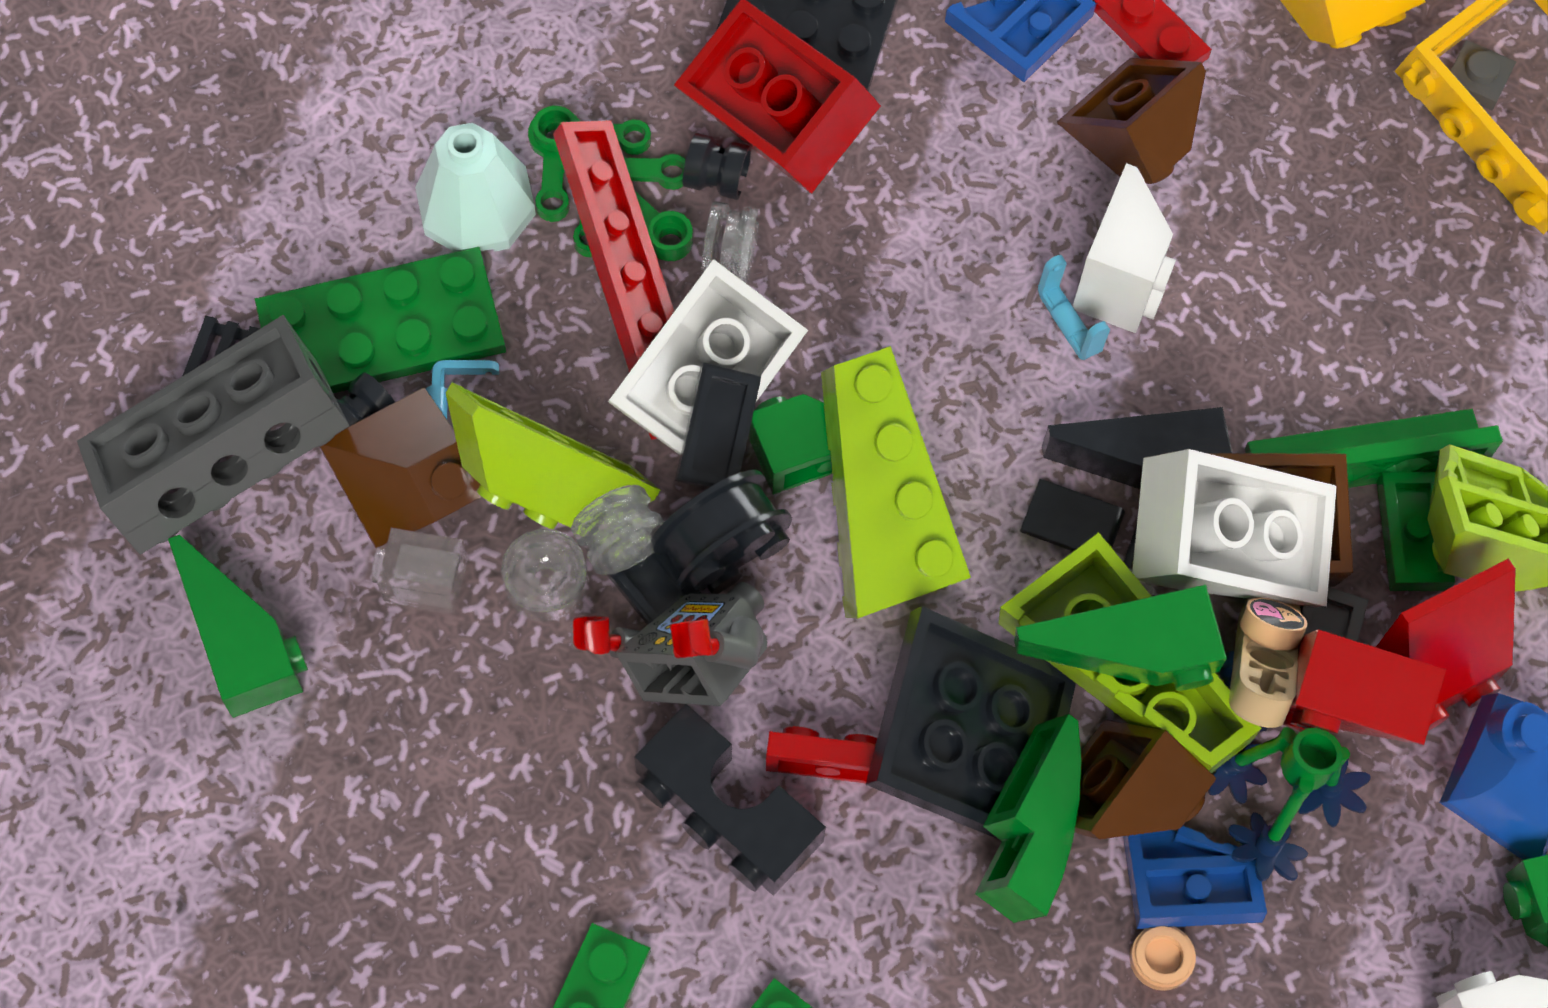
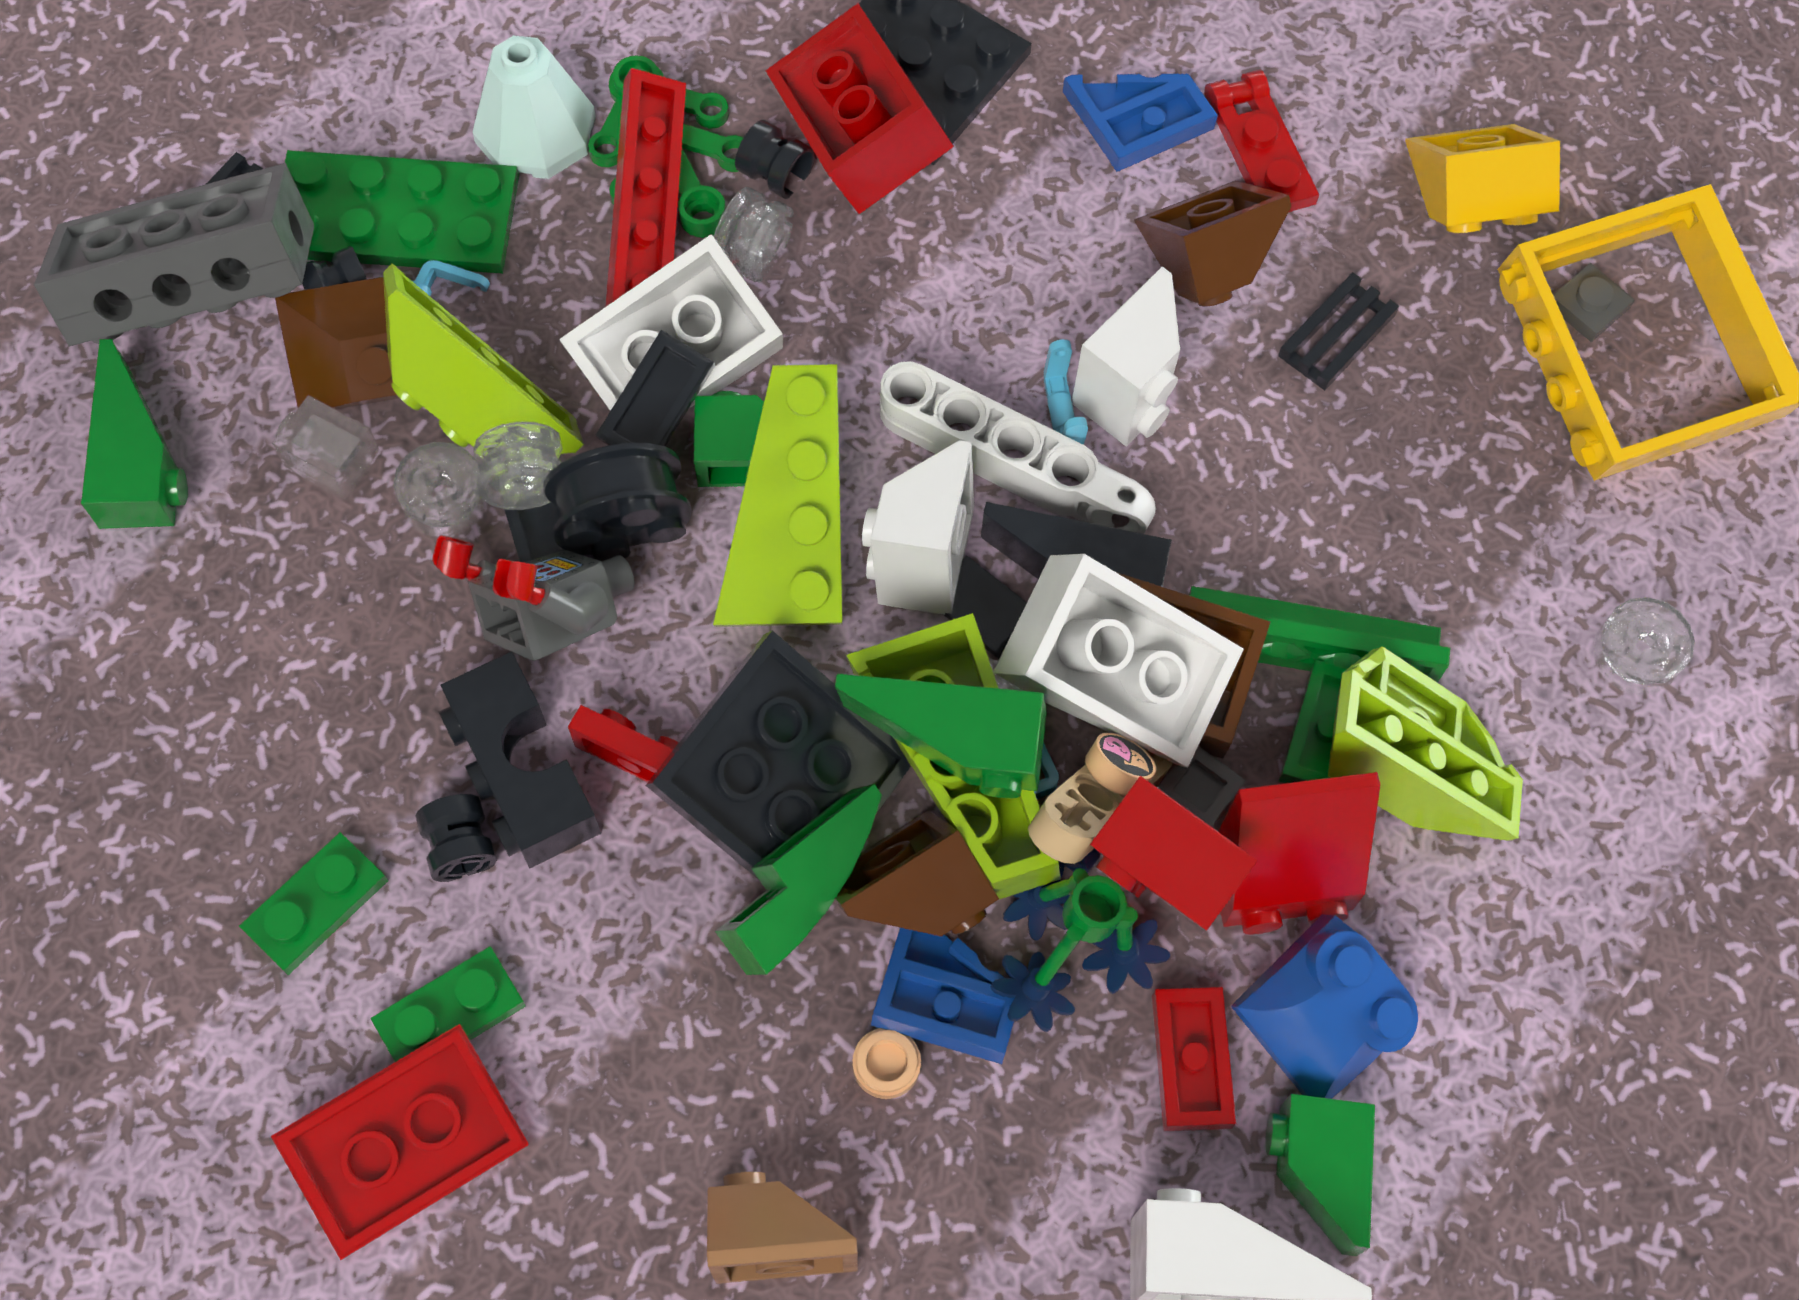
camera: 20 degrees right, 0 degrees up
(701, 890) = (455, 837): none -> black wheel
(1007, 474) = (922, 532): none -> white slope
(1024, 352) = (1001, 429): none -> white piece
(1290, 133) = (1365, 300): none -> black tile
(1421, 859) = (1193, 1059): none -> red plate

